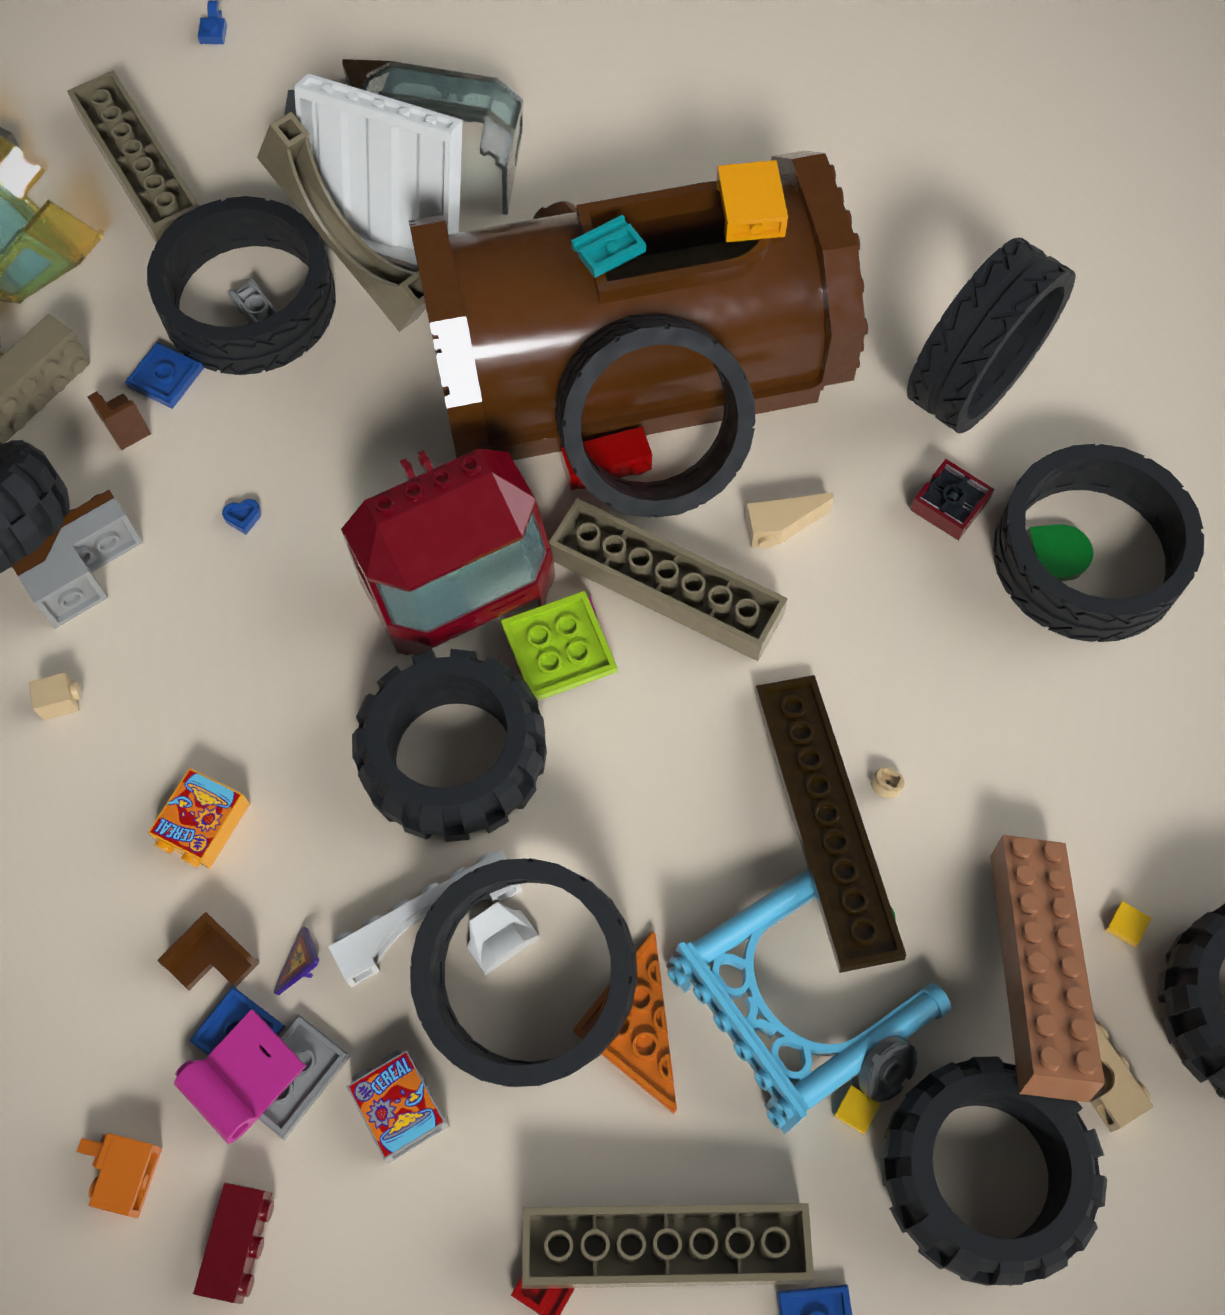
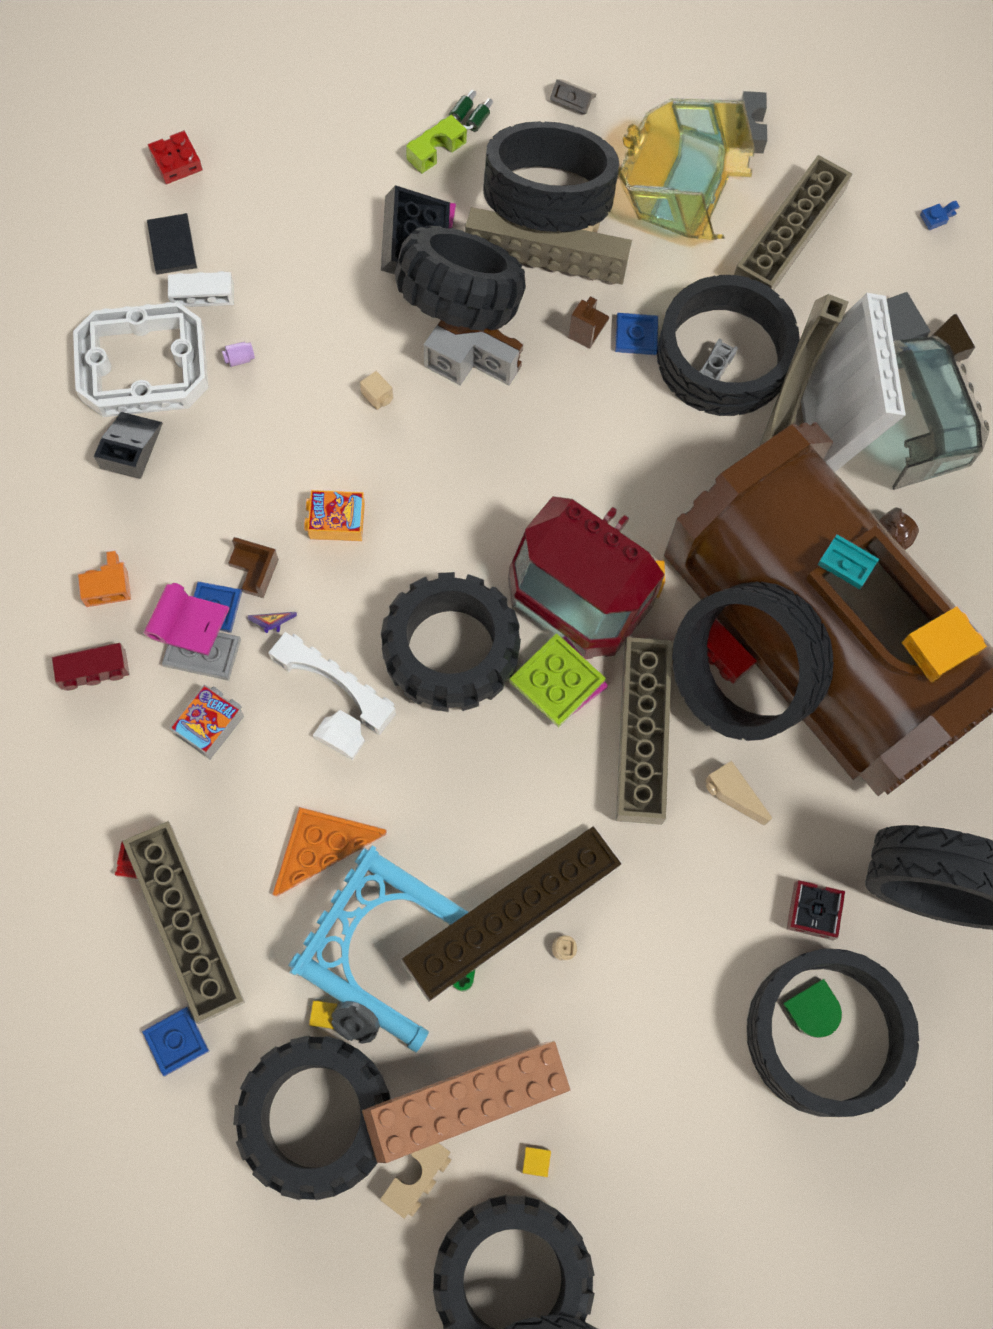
camera: 60 degrees right, 5 degrees up
(242, 515) = (558, 435): blue tile -> none
(428, 973) = (268, 718): black tyre -> none

